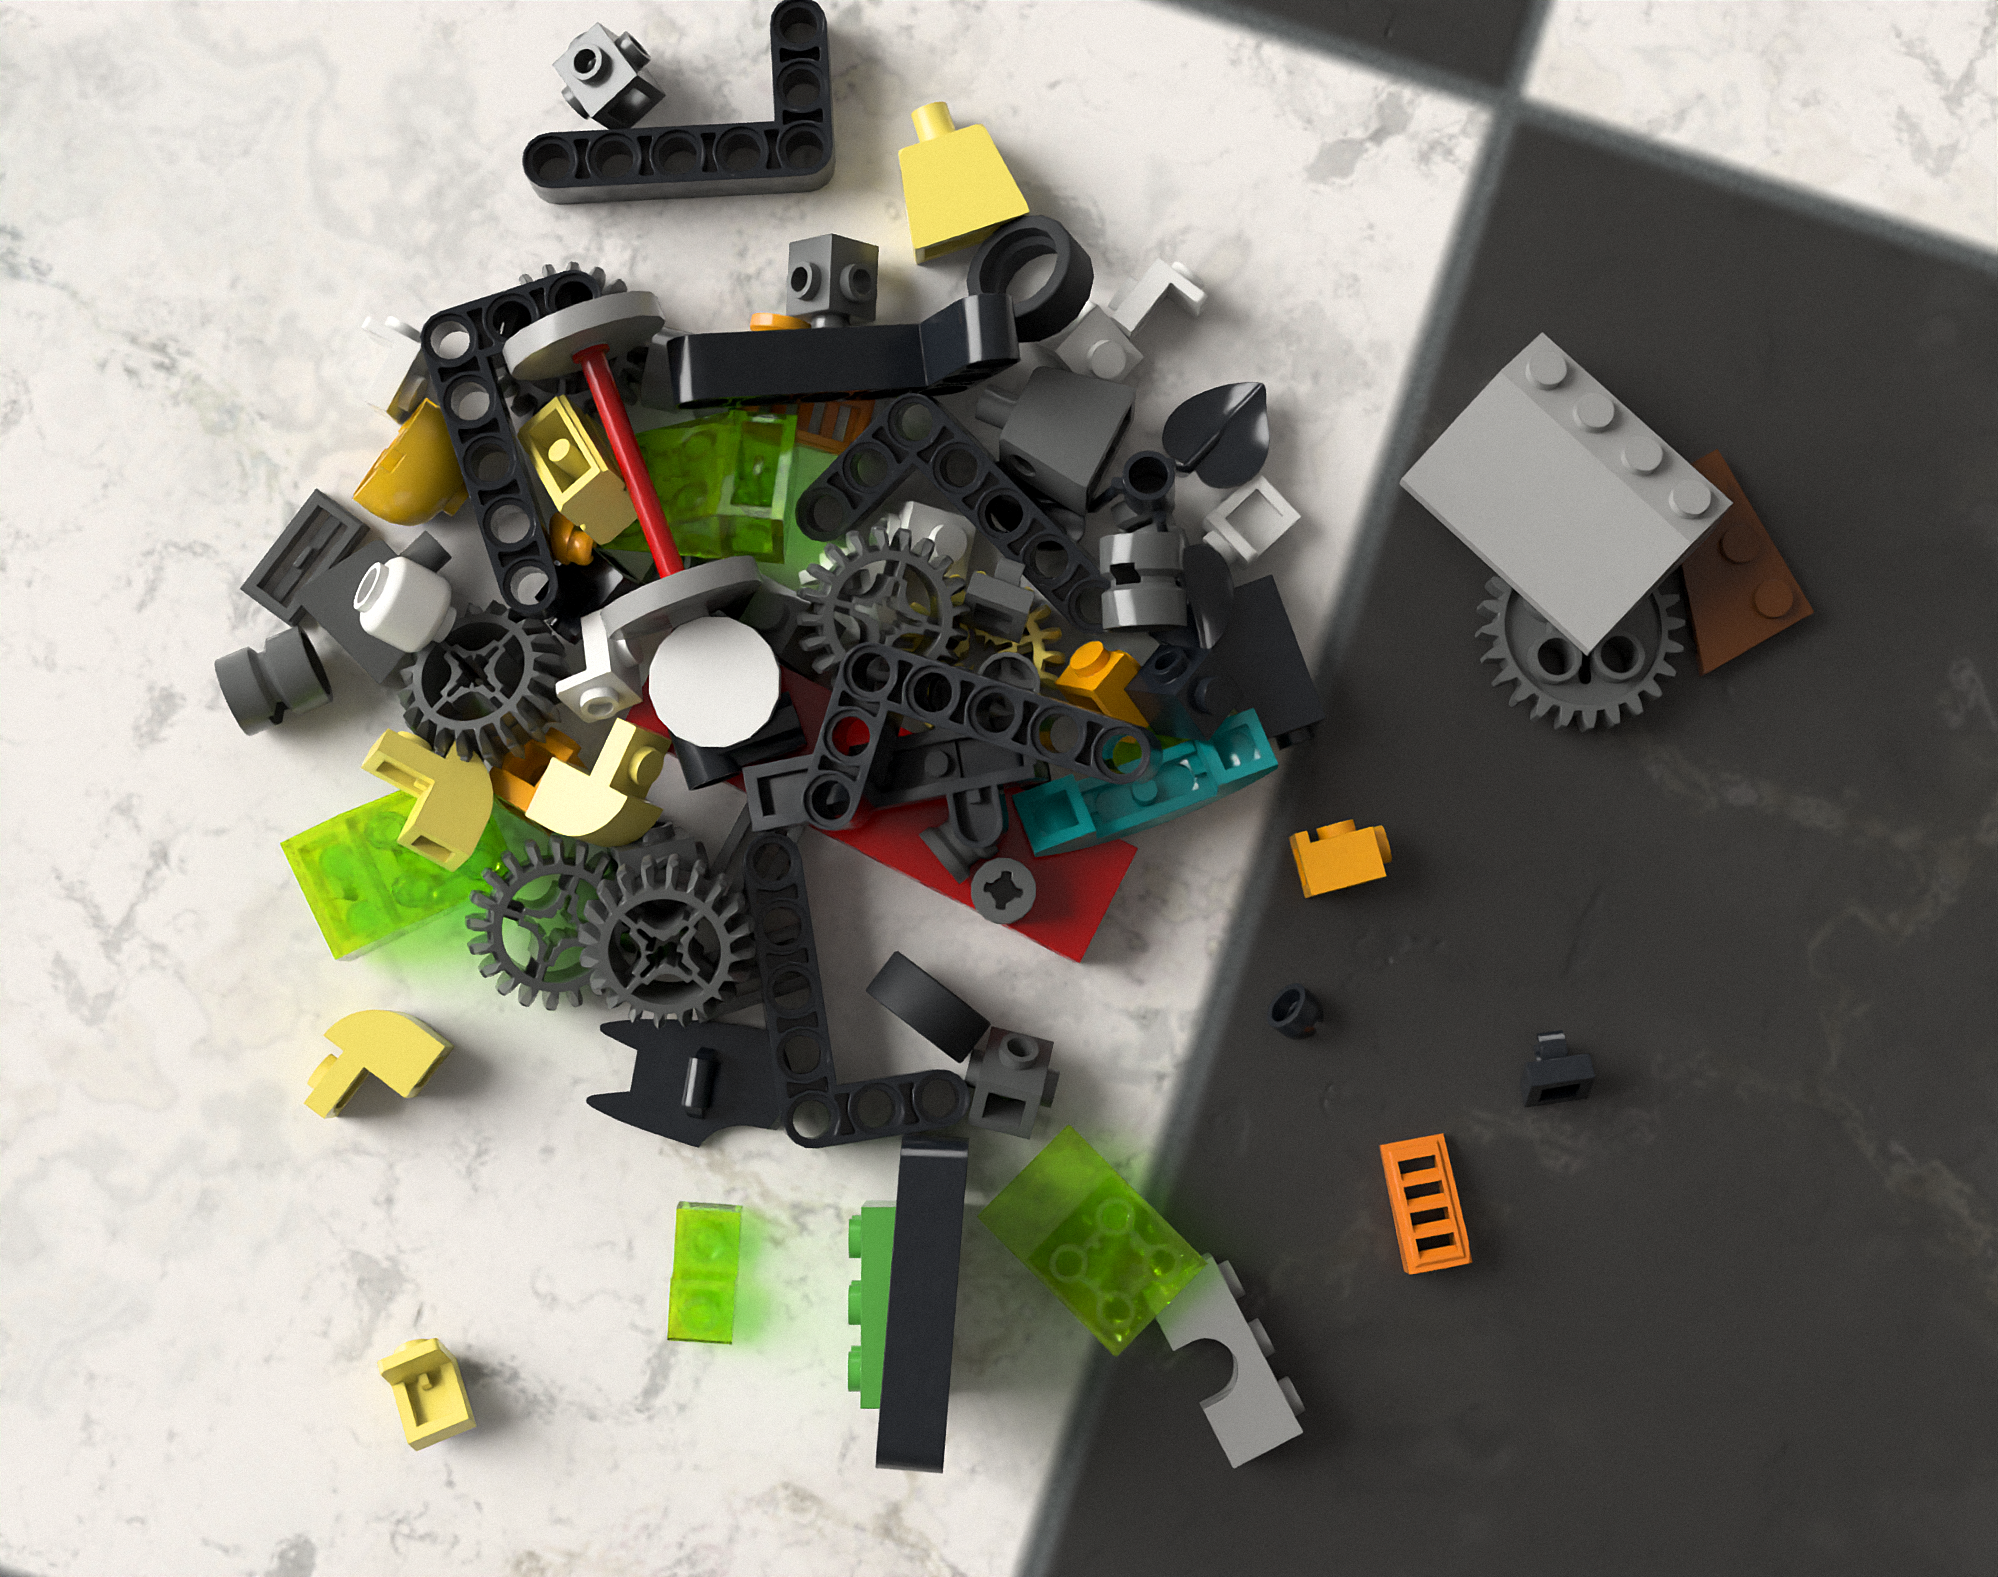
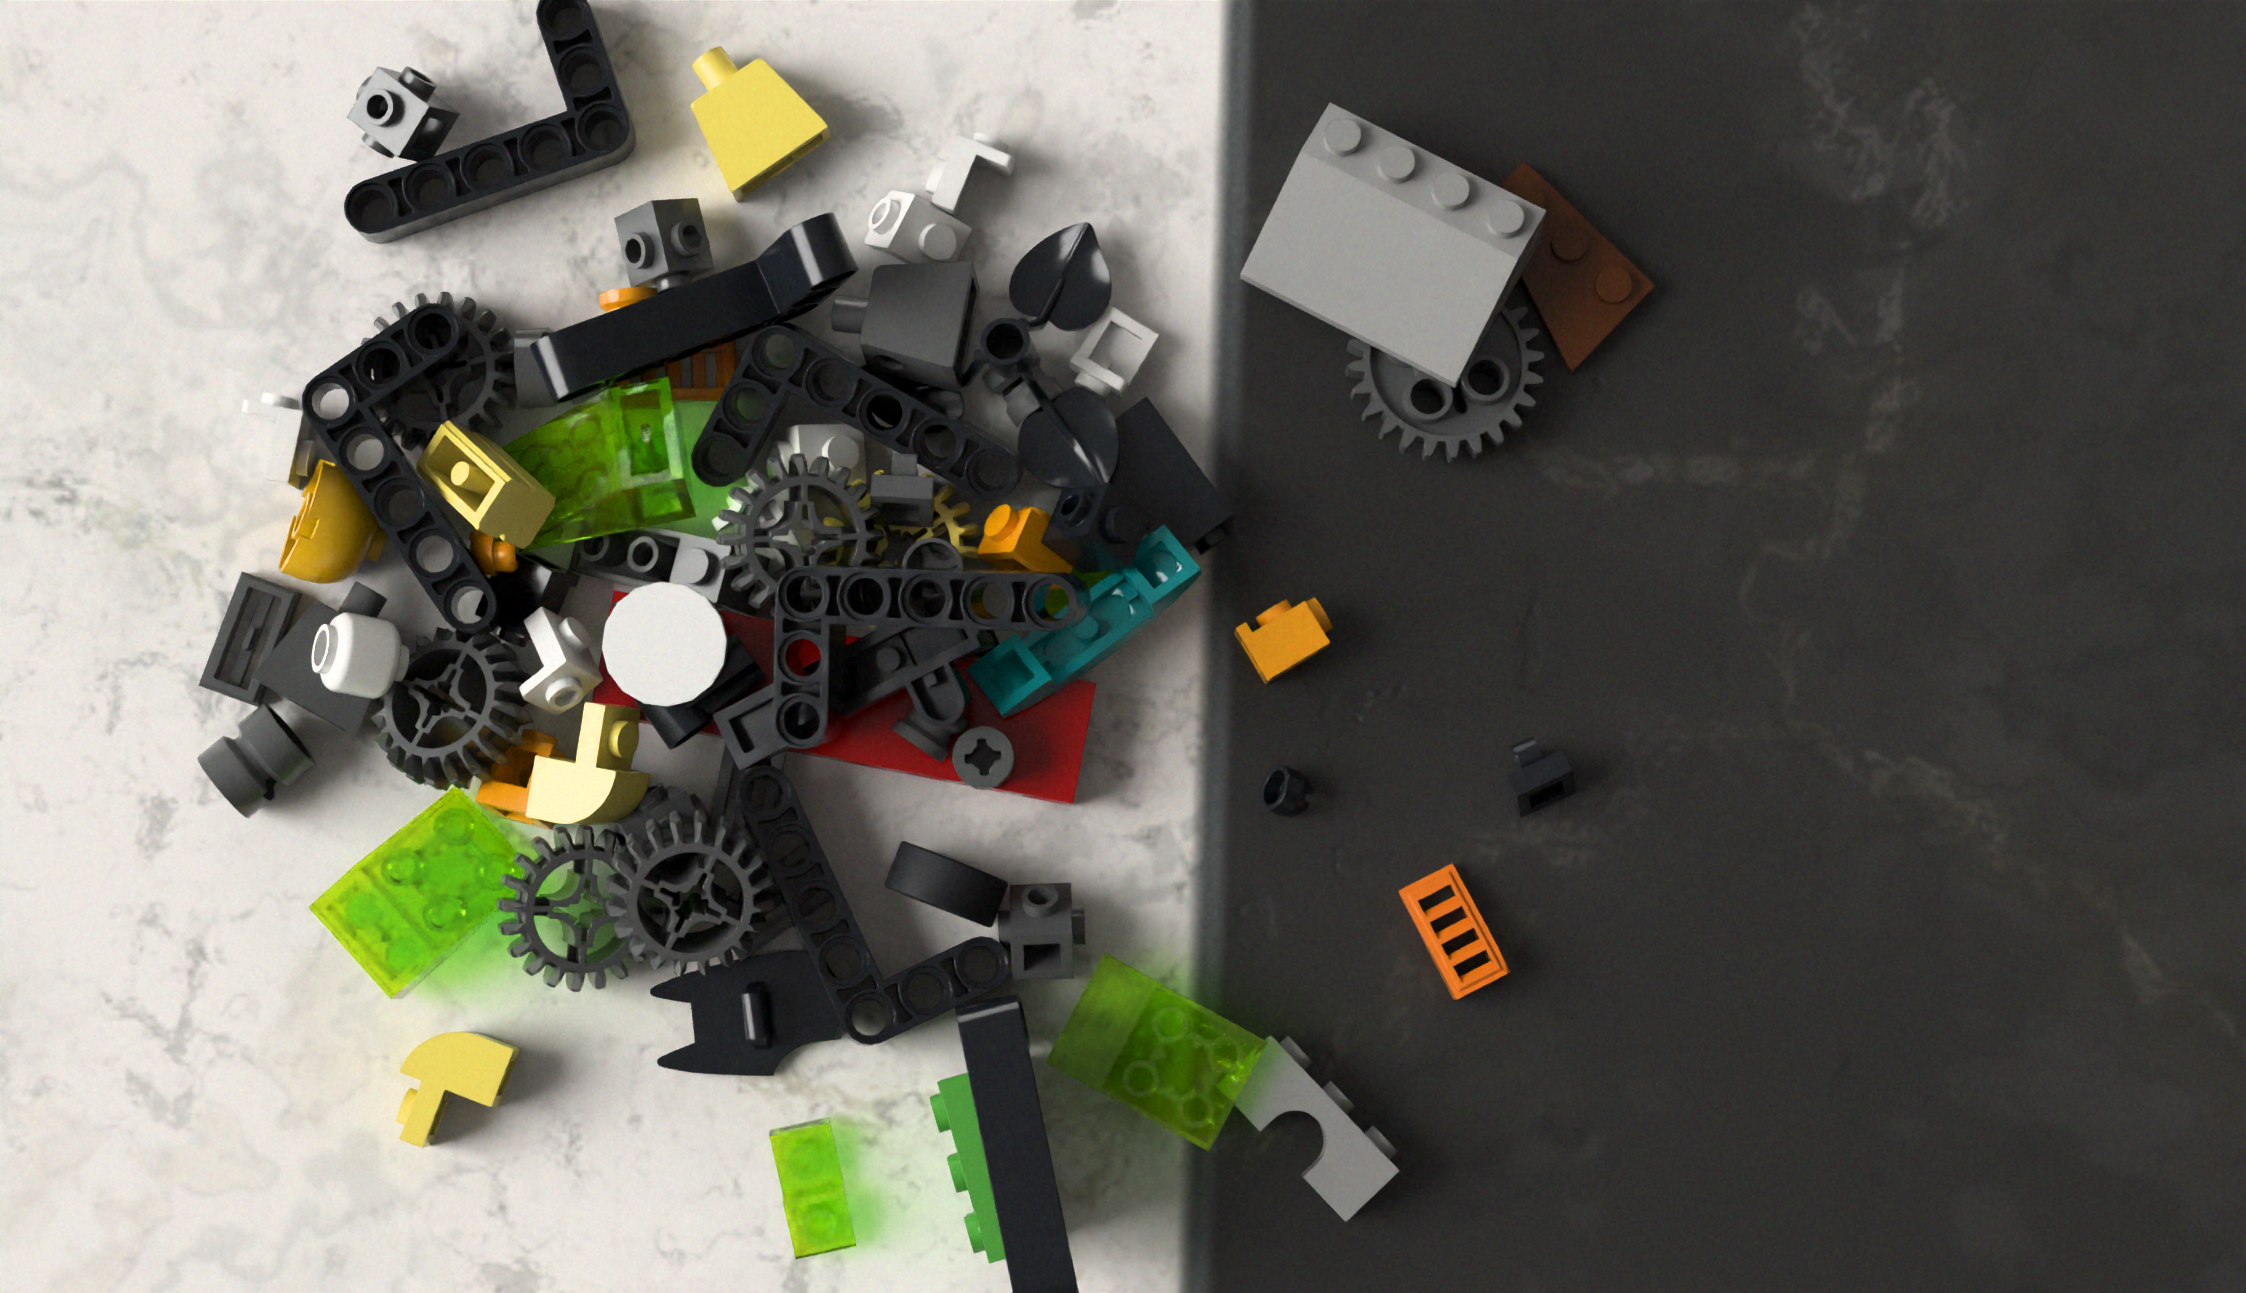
camera: 15 degrees left, 0 degrees up
(450, 796) = (452, 818): light yellow brick -> none
(585, 339) = (454, 366): light grey piece -> none
(1011, 249) = (819, 166): black tyre -> none
(1143, 582) = (1029, 440): dark grey wheel -> none

